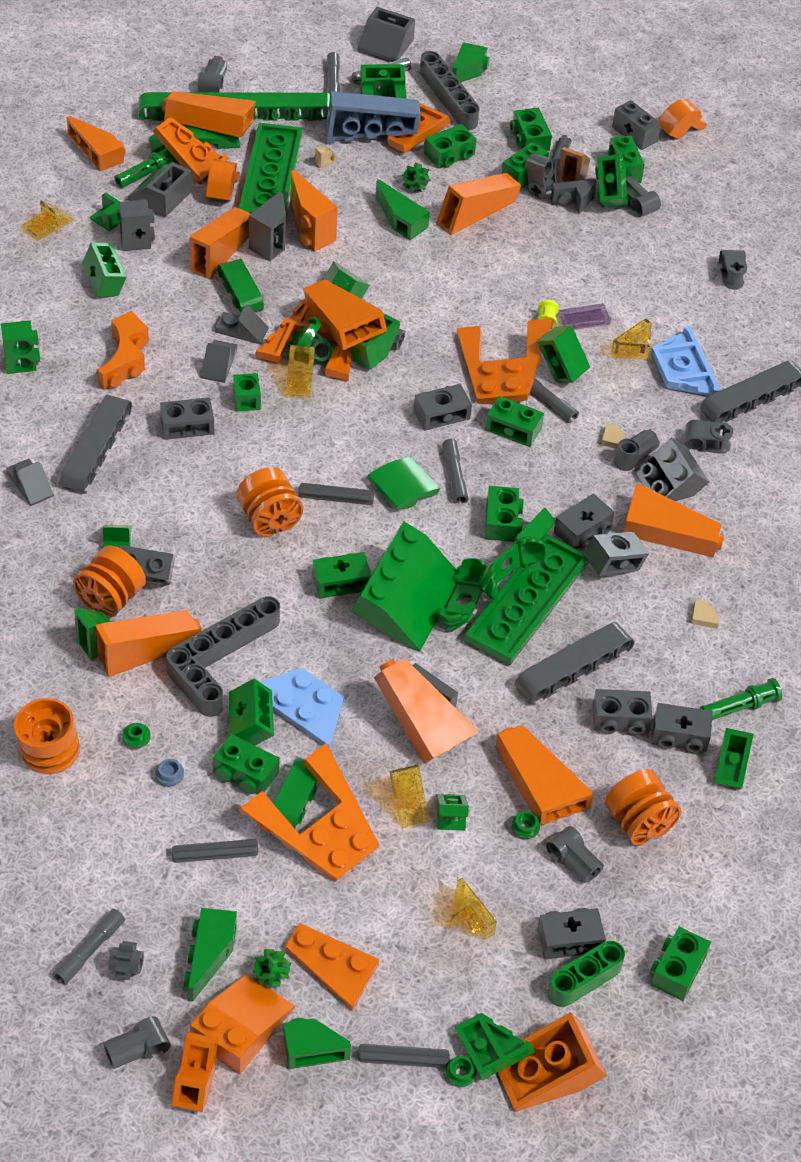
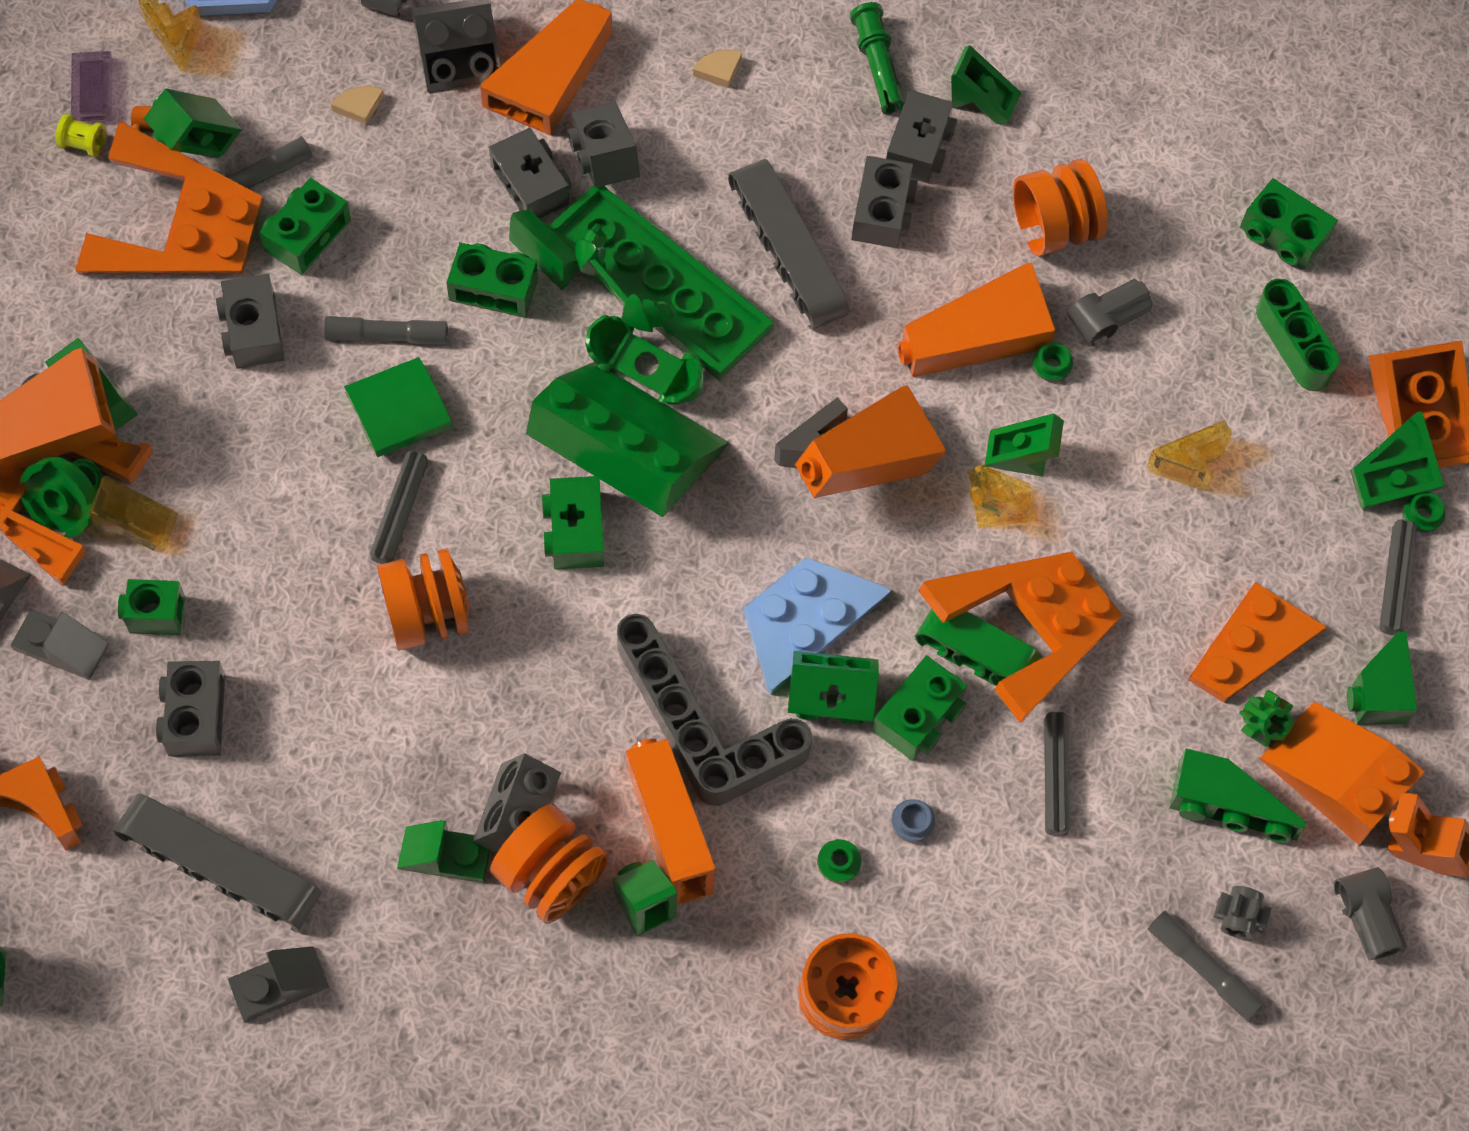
camera: 80 degrees left, 15 degrees up
(570, 932) = (1234, 340): dark grey brick -> none
(634, 449) = (397, 79): dark grey piece -> none

